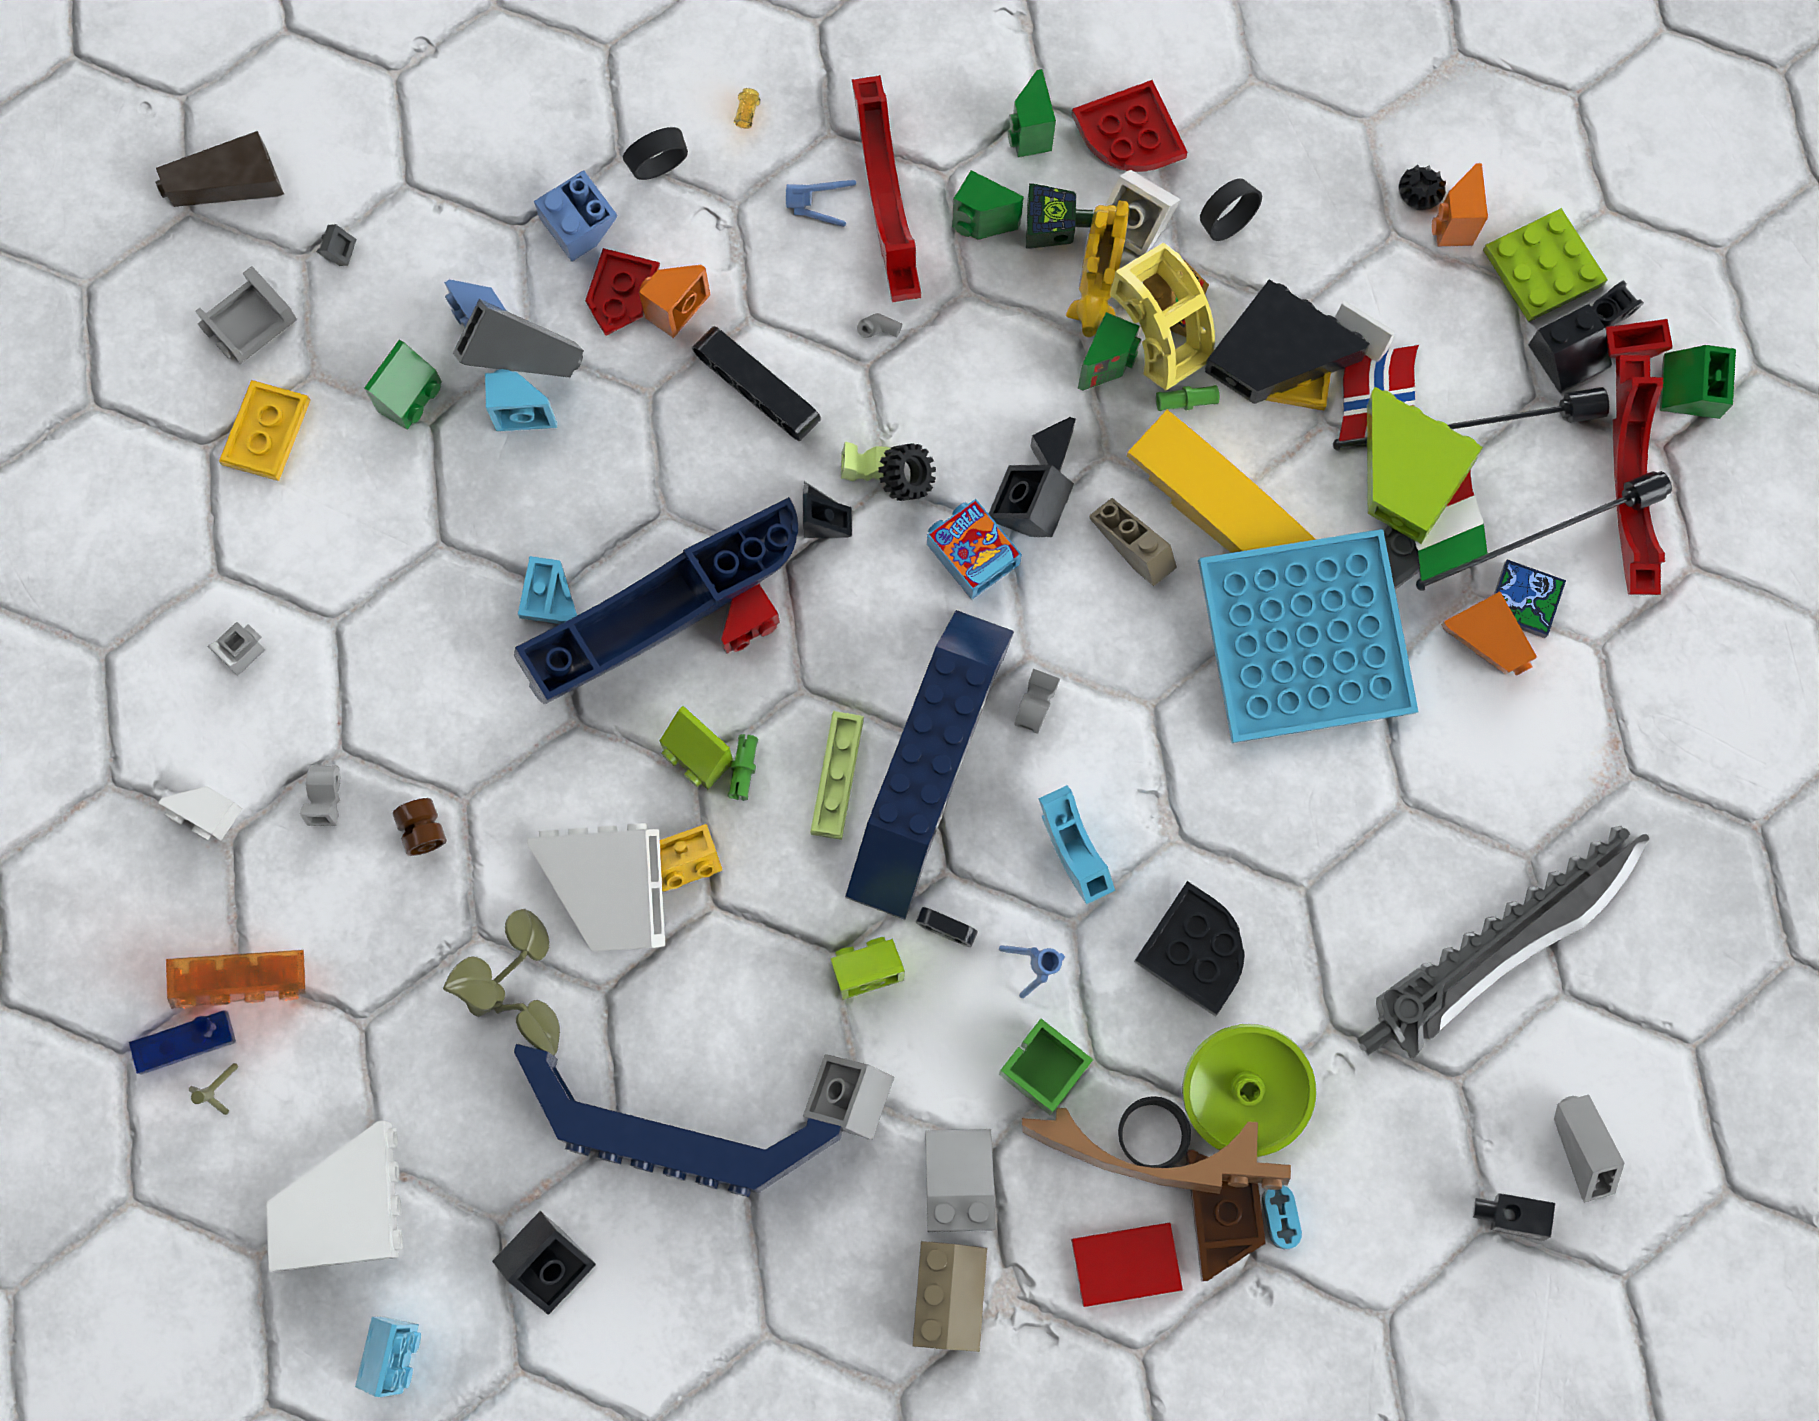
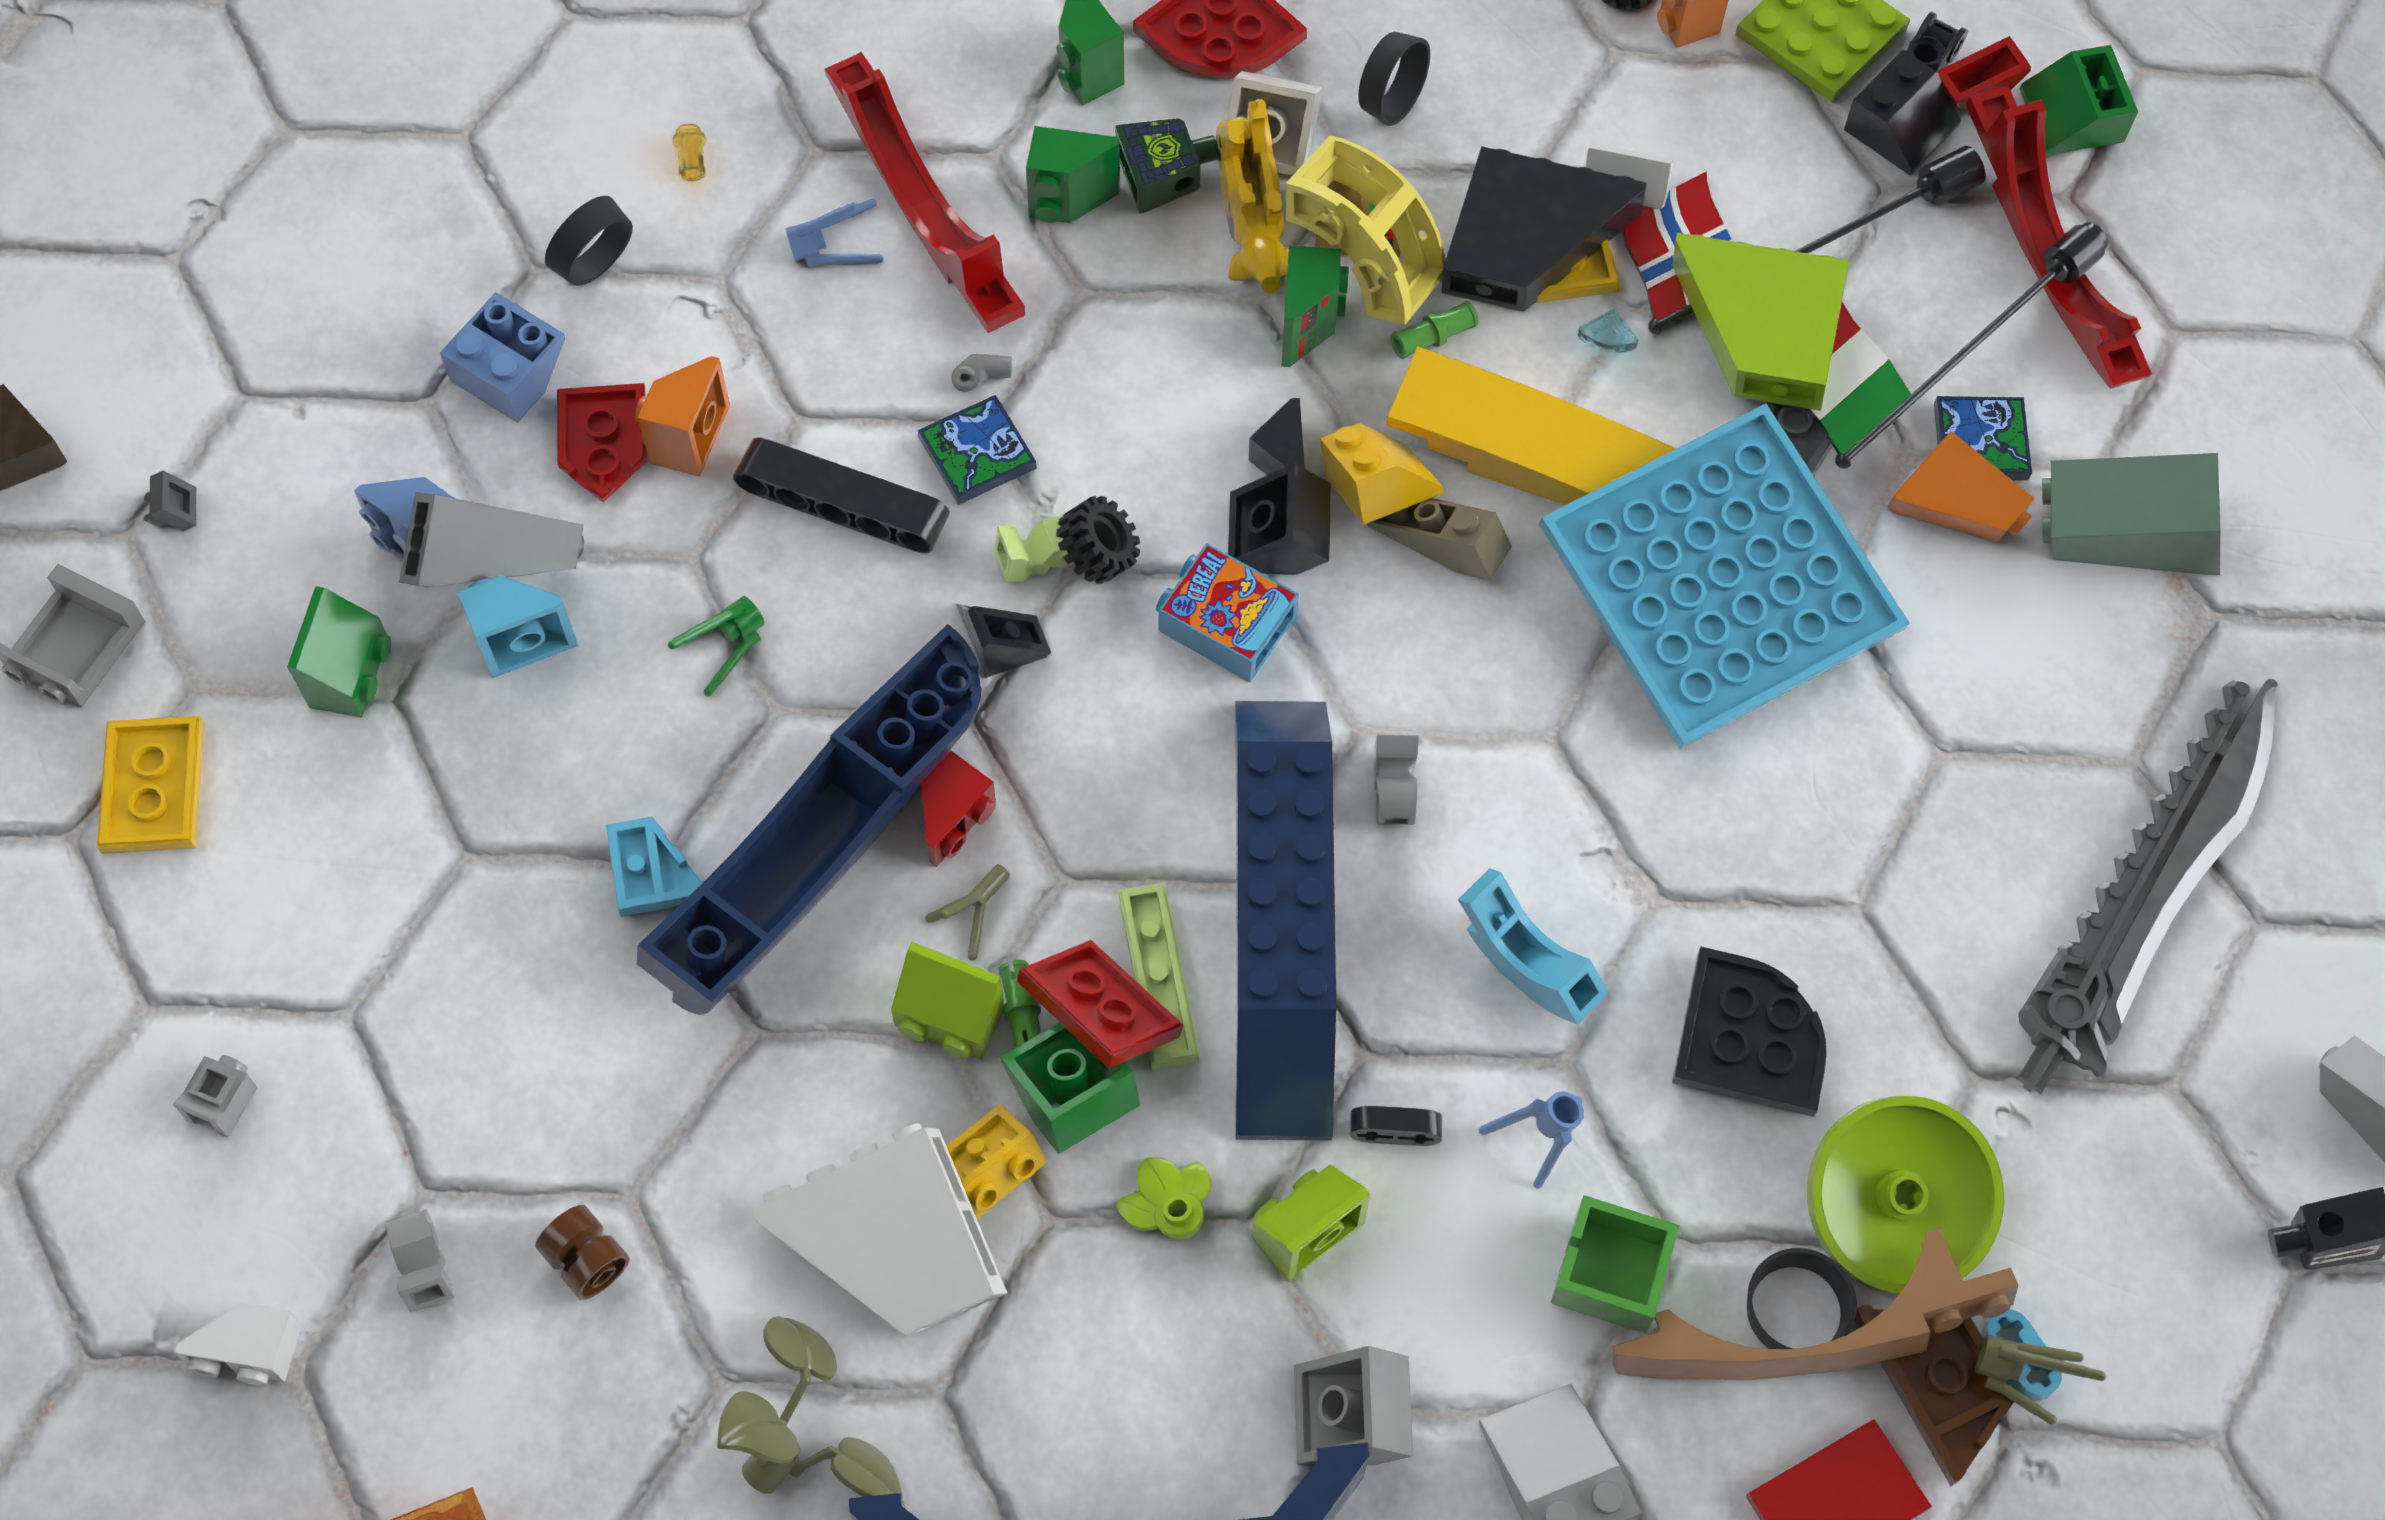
camera: 20 degrees left, 10 degrees down
(659, 447) = (735, 622): none -> green plant
(744, 684) = (978, 898): none -> olive plant
(754, 825) = (1068, 1087): none -> green slope
(787, 916) = (1164, 1192): none -> lime plate
(789, 783) = (1099, 1003): none -> red tile
(856, 380) = (977, 449): none -> tile
(1107, 487) = (1375, 472): none -> yellow slope
(1265, 1218) = (2004, 1360): none -> olive plant
(1304, 439) = (1609, 333): none -> clear light blue tile
(1605, 688) = (2136, 512): none -> sand green slope

